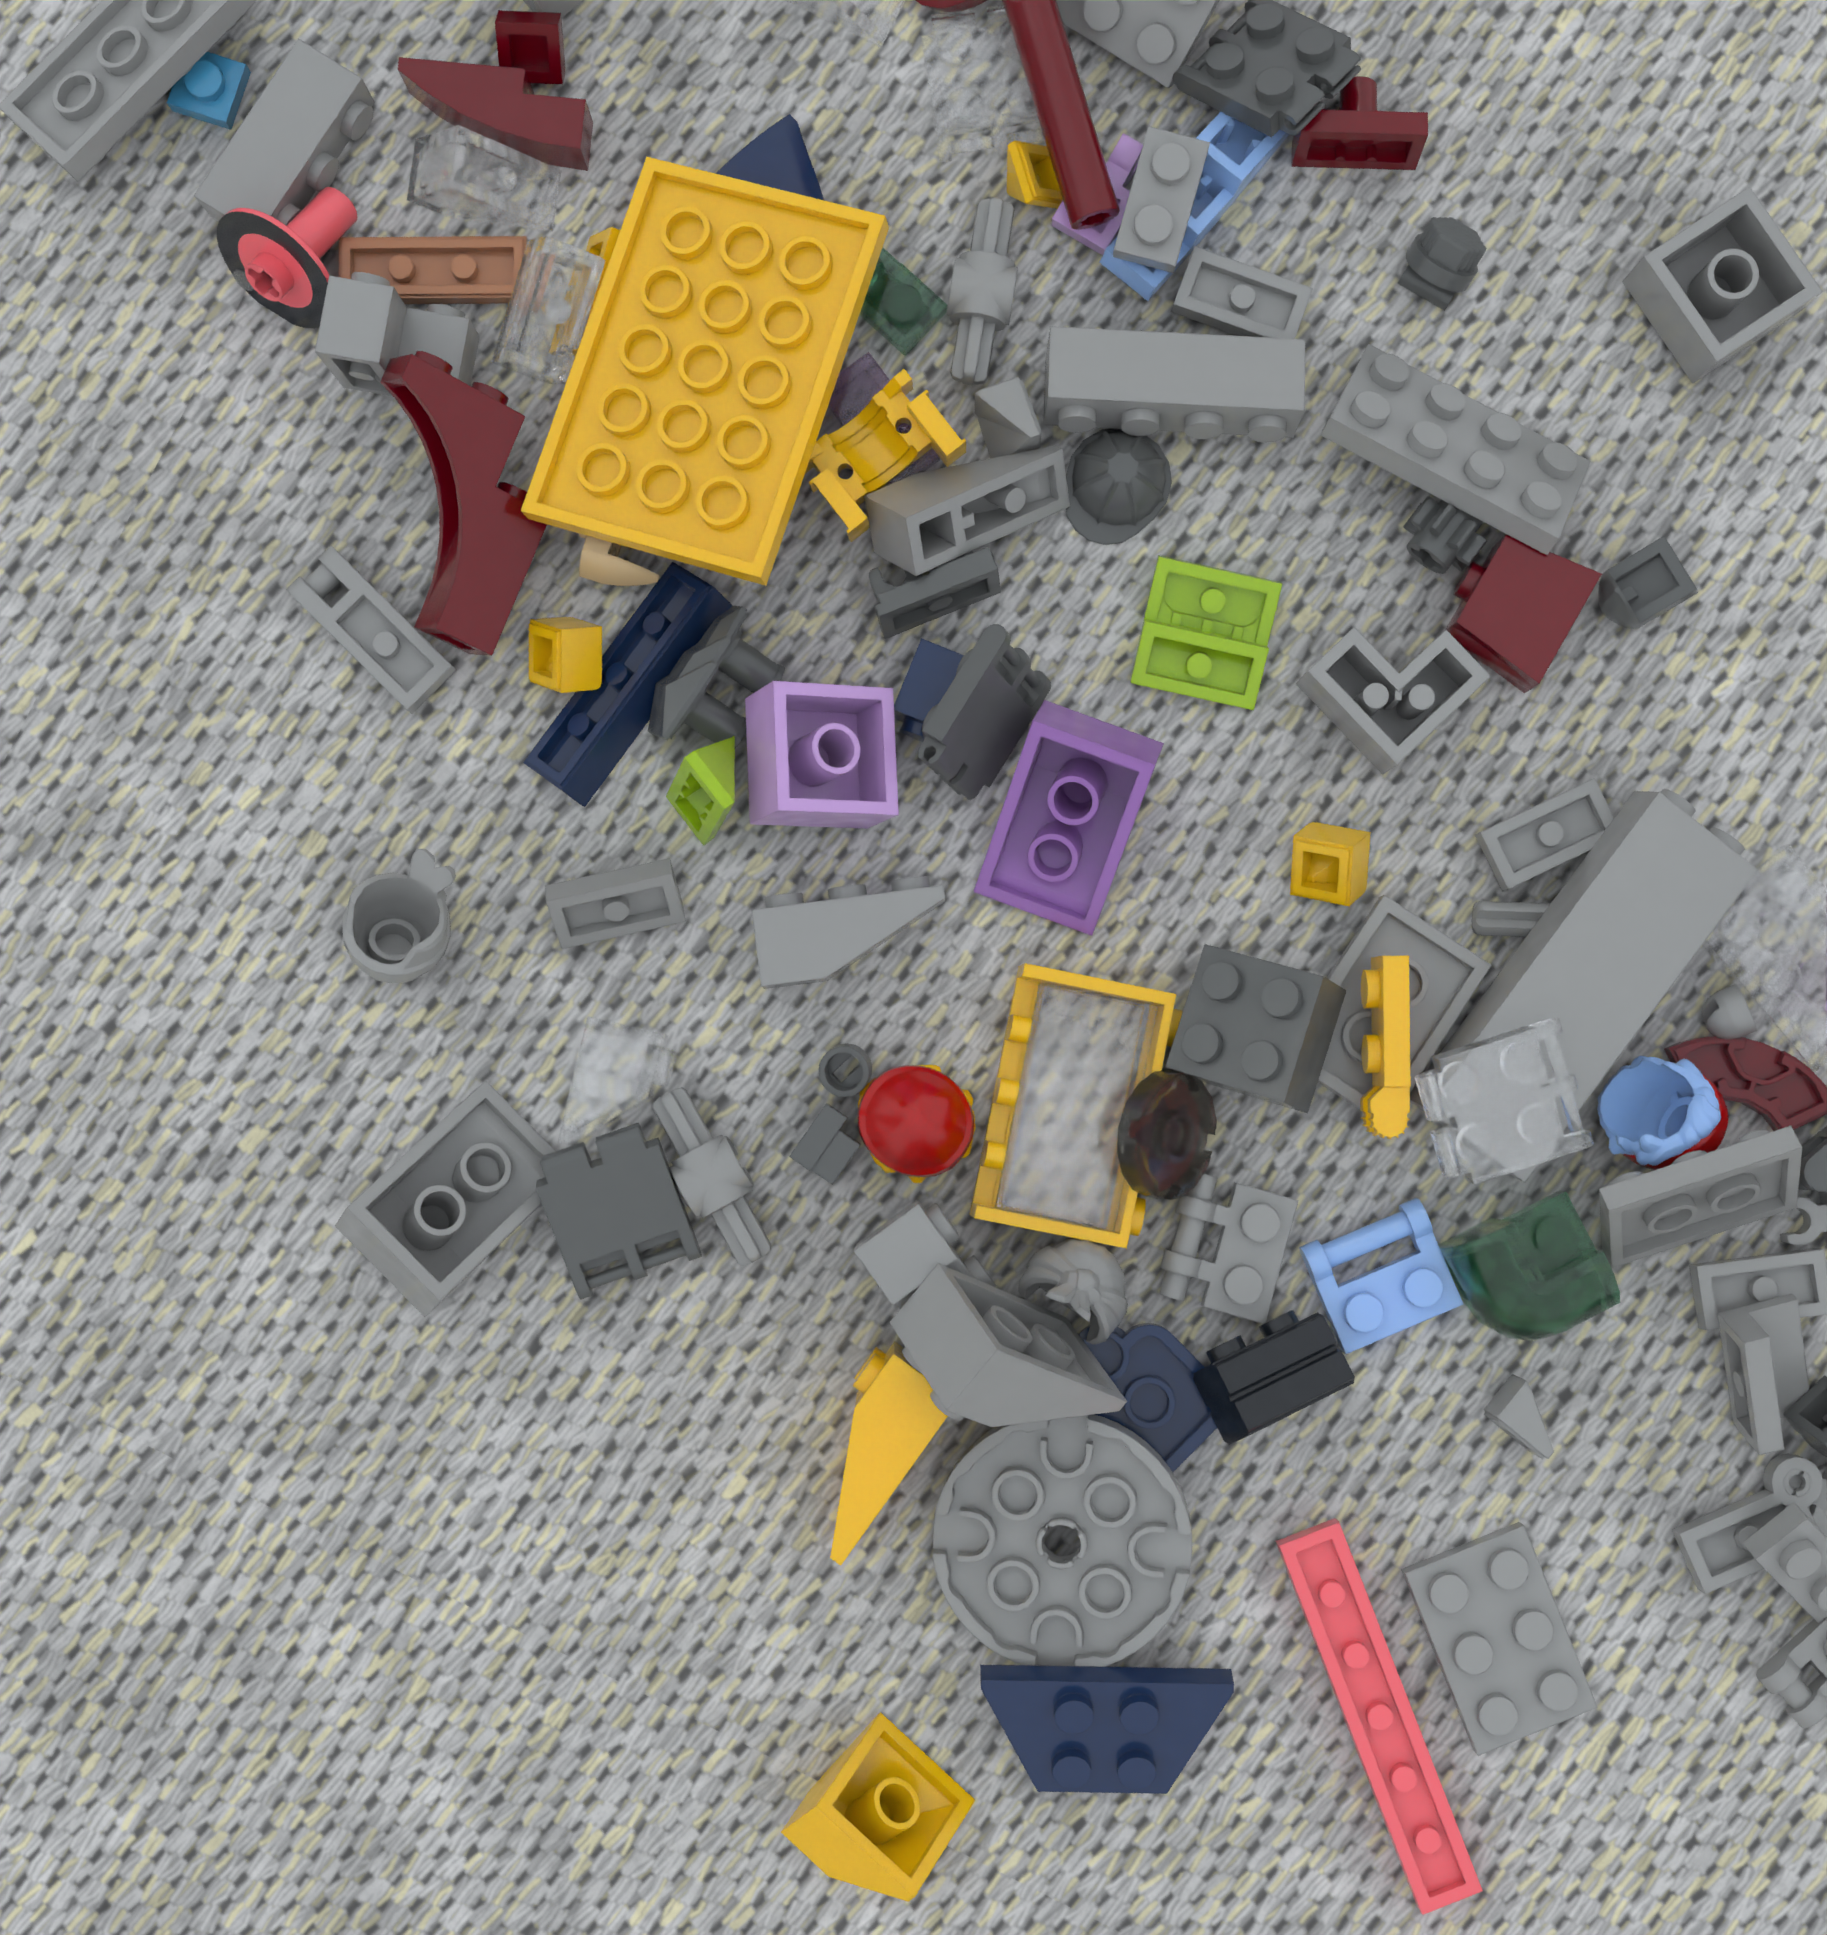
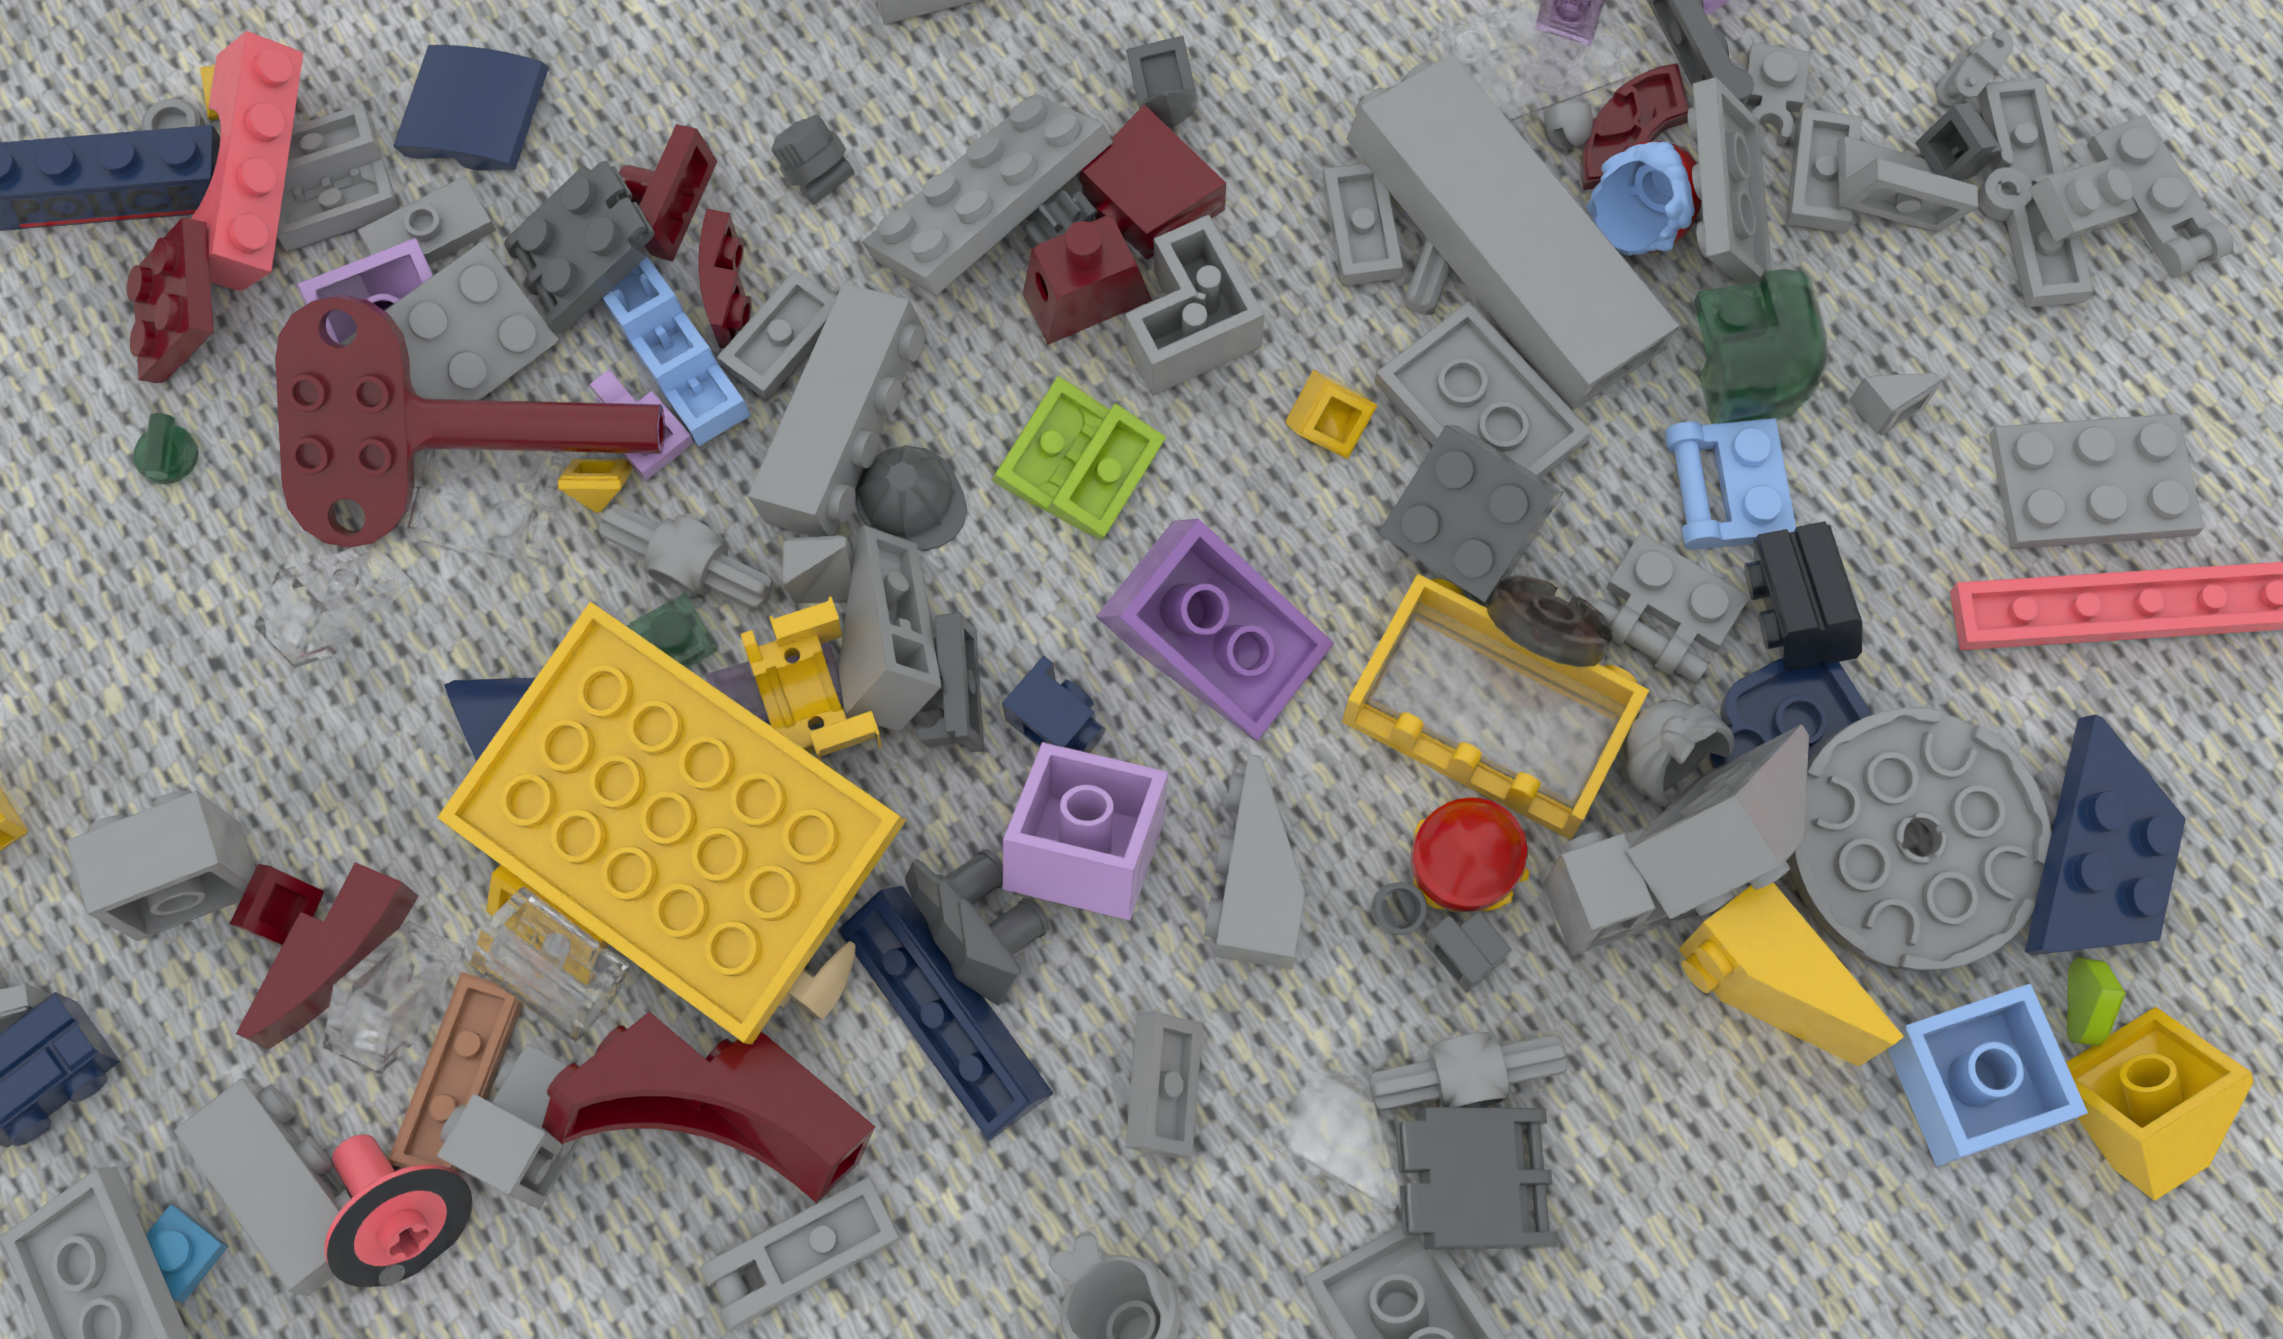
camera: 70 degrees left, 15 degrees down
(565, 654) = (895, 1059): yellow slope -> none
(705, 788) = (1085, 955): lime slope -> none
(847, 1652) = (1985, 1075): none -> light blue brick
(957, 1739) = (2093, 1001): none -> lime tile
(982, 713) = (1094, 667): dark grey plate -> none
(1161, 199) = (666, 366): light grey plate -> none
(1261, 226) = (720, 283): none -> dark red slope
(1388, 1047) = (1521, 402): yellow hinge -> none
(1392, 577) = (1082, 279): none -> dark red torso
(1501, 1104) = (1606, 316): clear plate -> none

